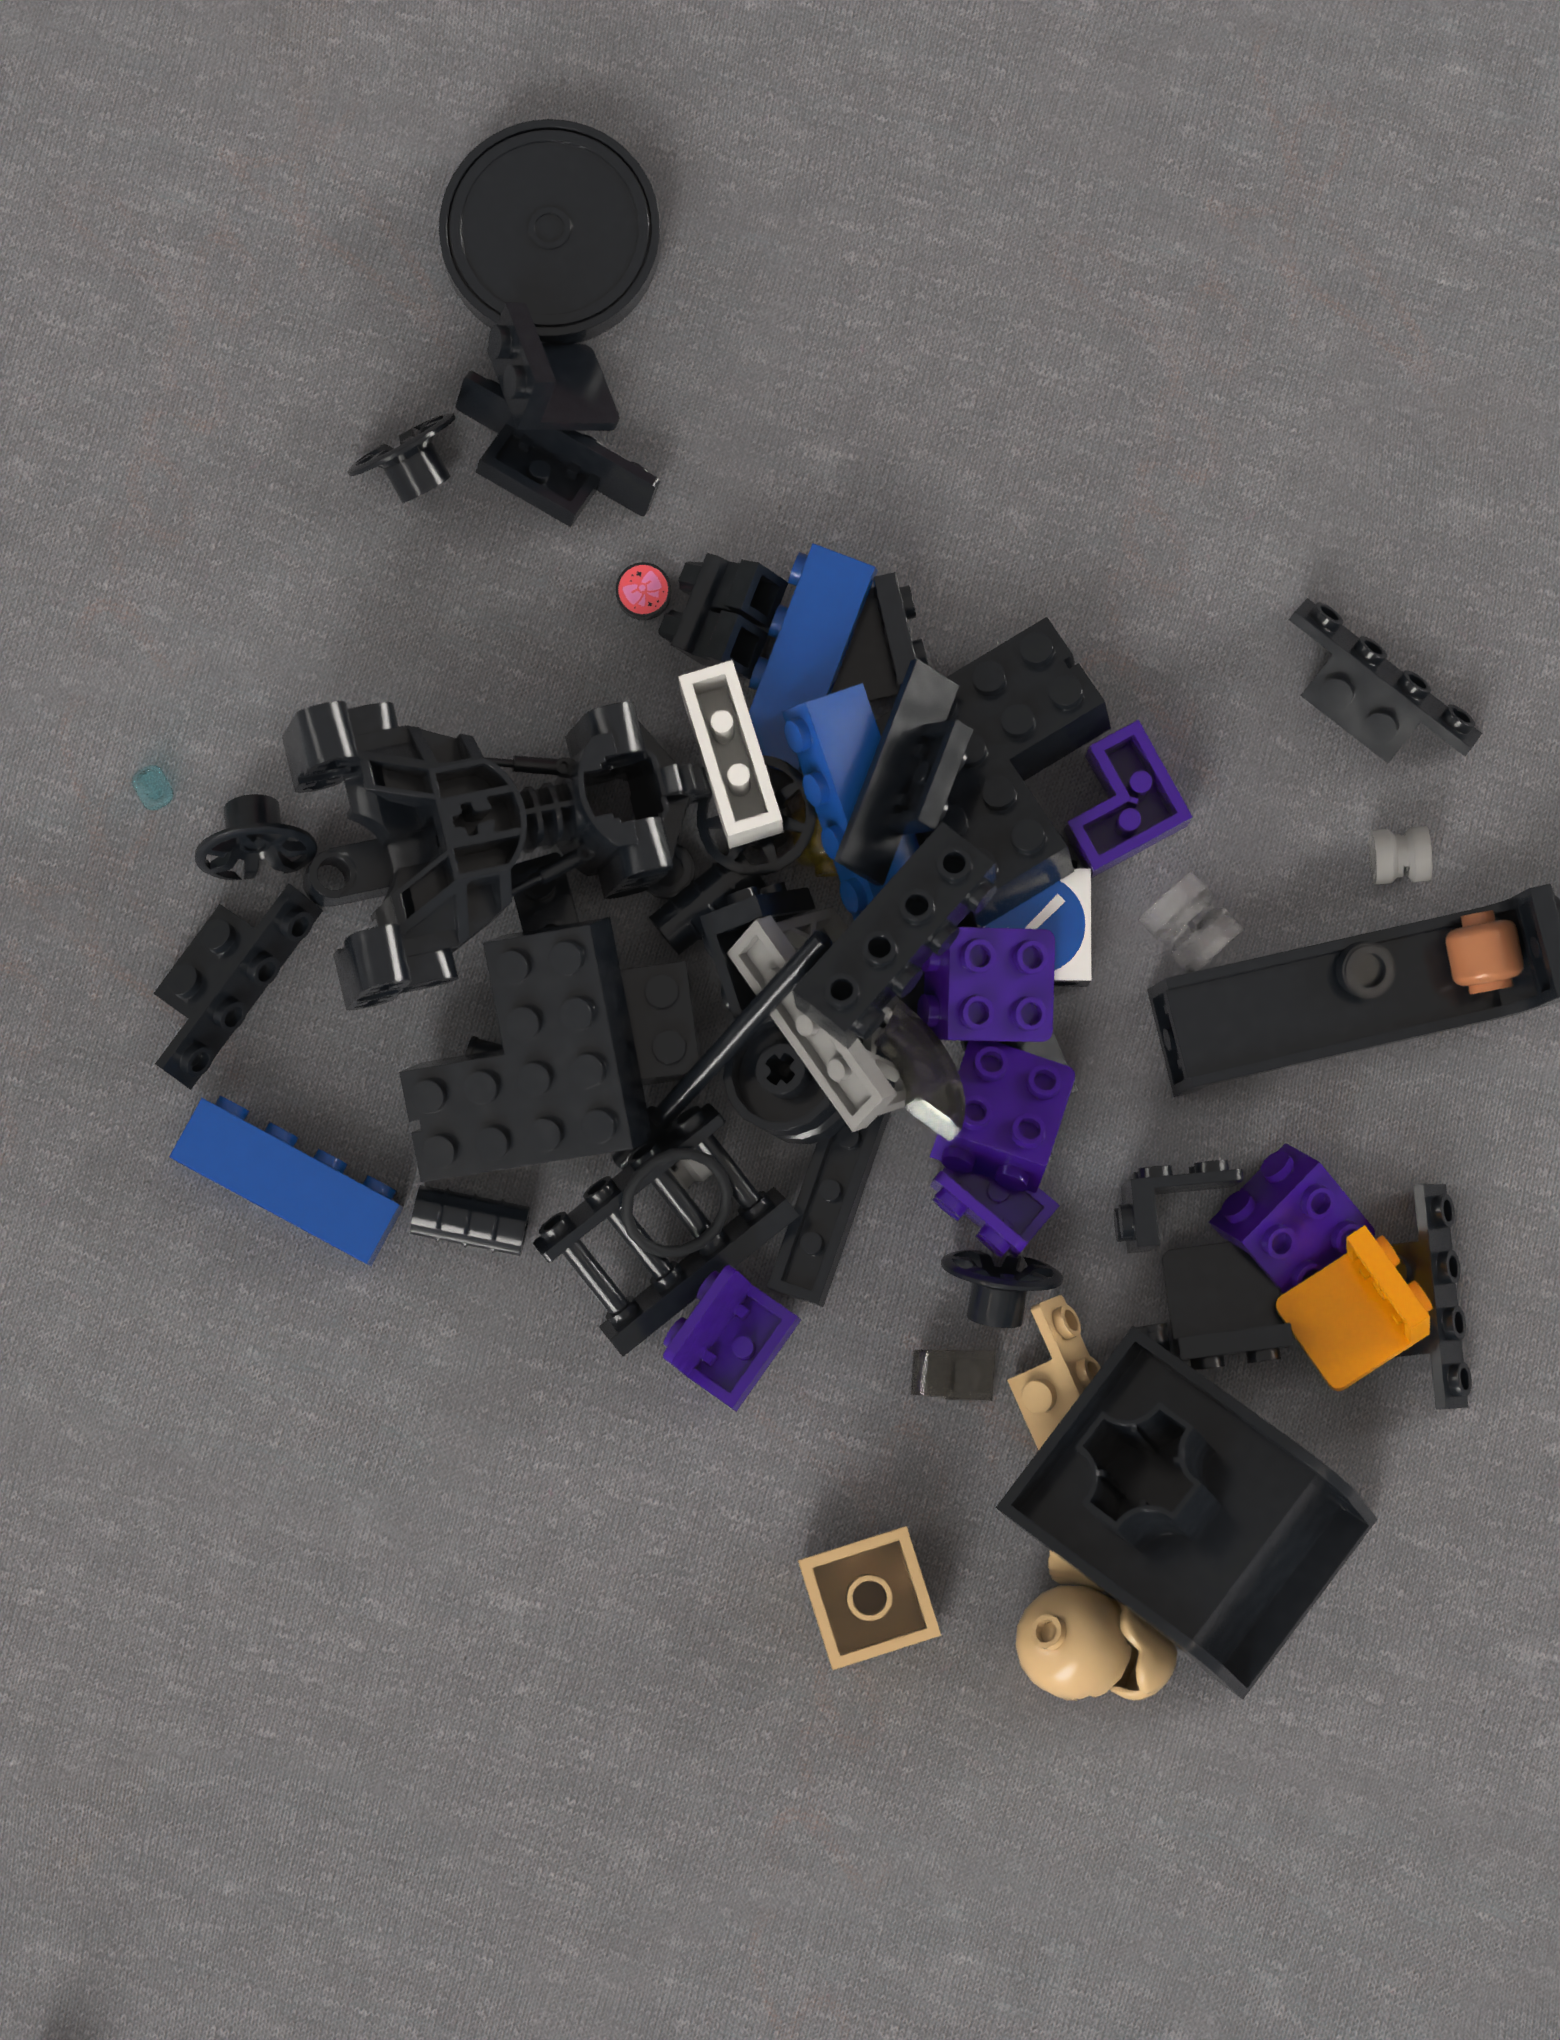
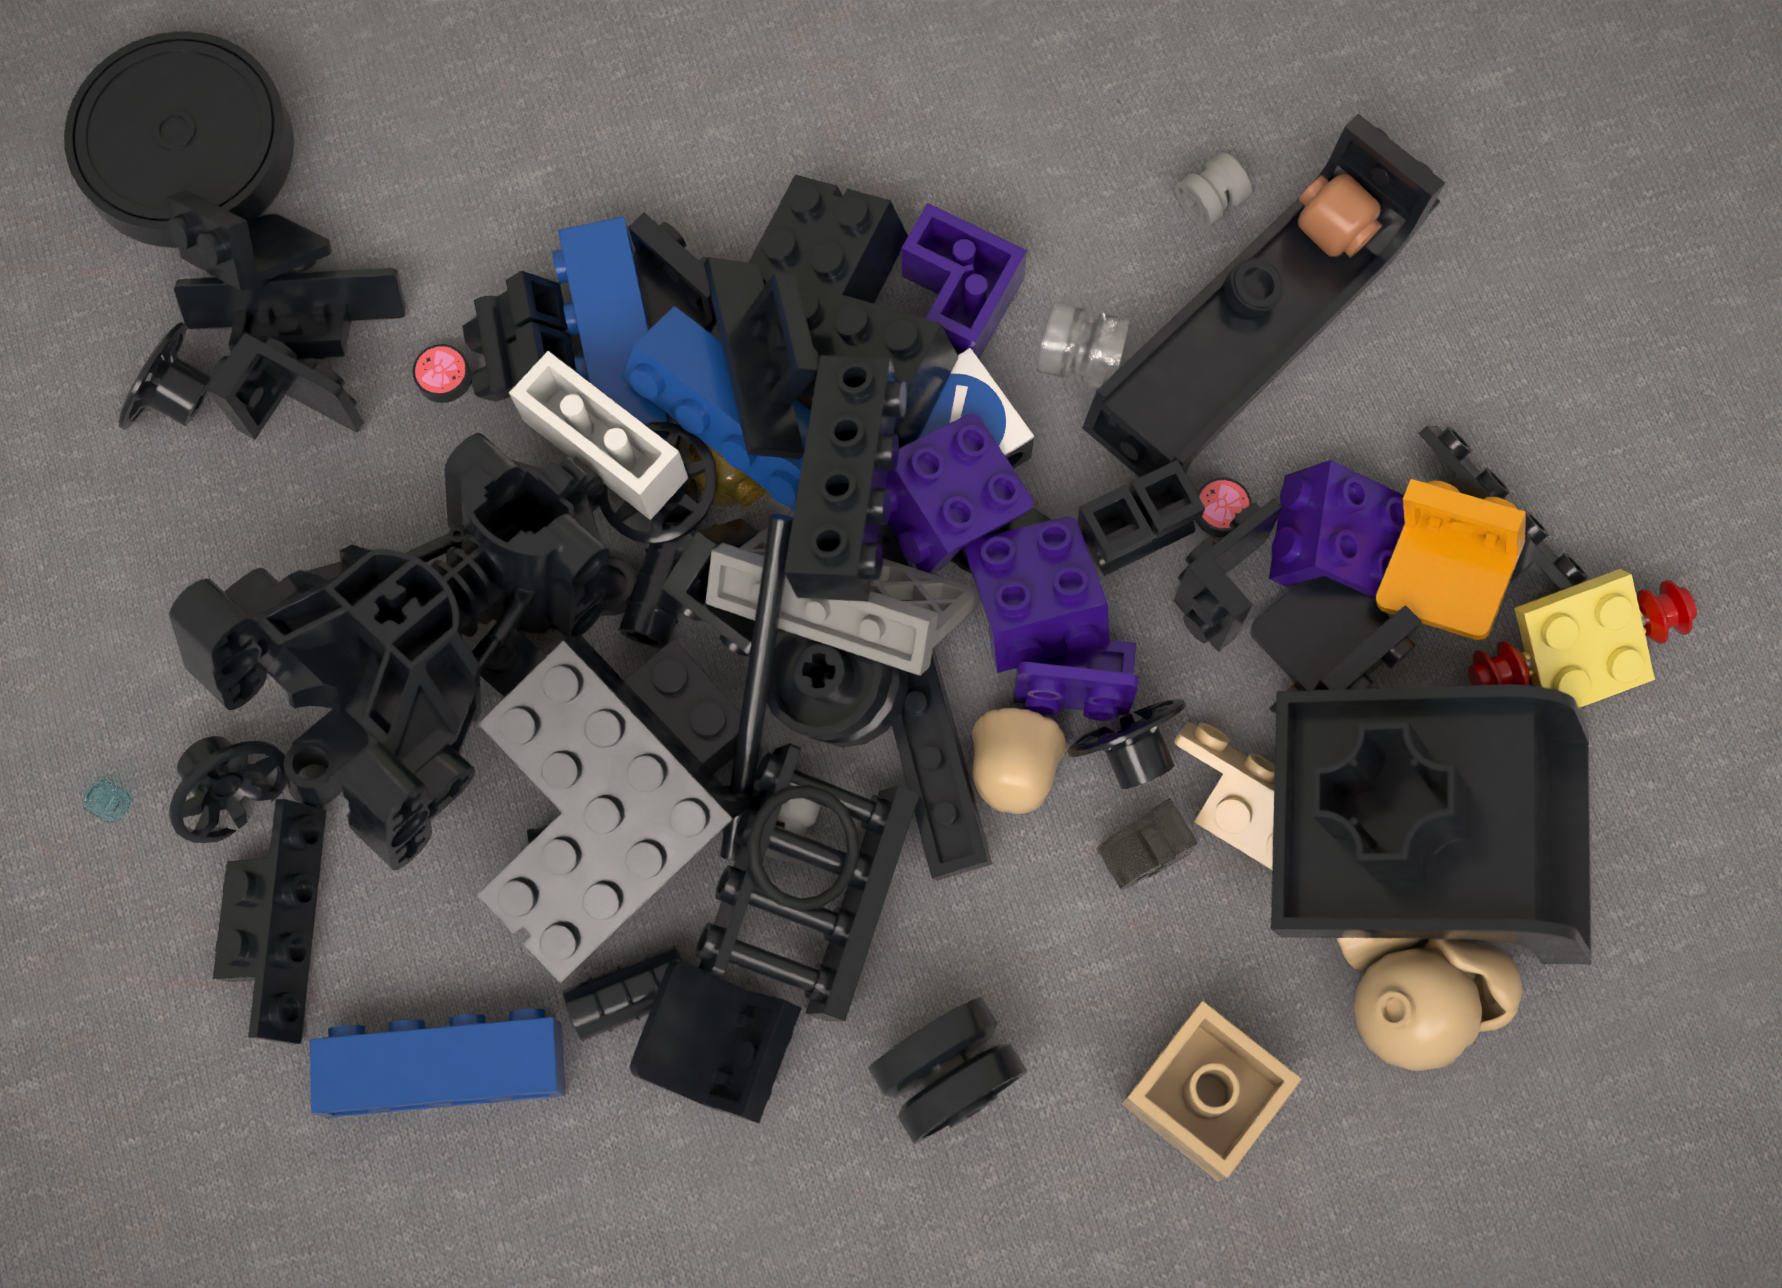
camera: 30 degrees left, 10 degrees down
(478, 508) = (260, 374): none -> black bracket
(512, 1305) = (714, 1041): none -> black bracket
(676, 1448) = (952, 1078): none -> black wheel
(729, 1336) = (927, 941): dark purple bracket -> none
(897, 1236) = (1016, 758): none -> tan hair
(926, 1070) = (951, 590): clear smoke tile -> none
(1129, 1110) = (1141, 518): none -> black hips
(1214, 1135) = (1222, 502): none -> tile
(1373, 695) = (1101, 89): black bracket -> none
(1422, 1446) = (1588, 638): none -> light yellow plate

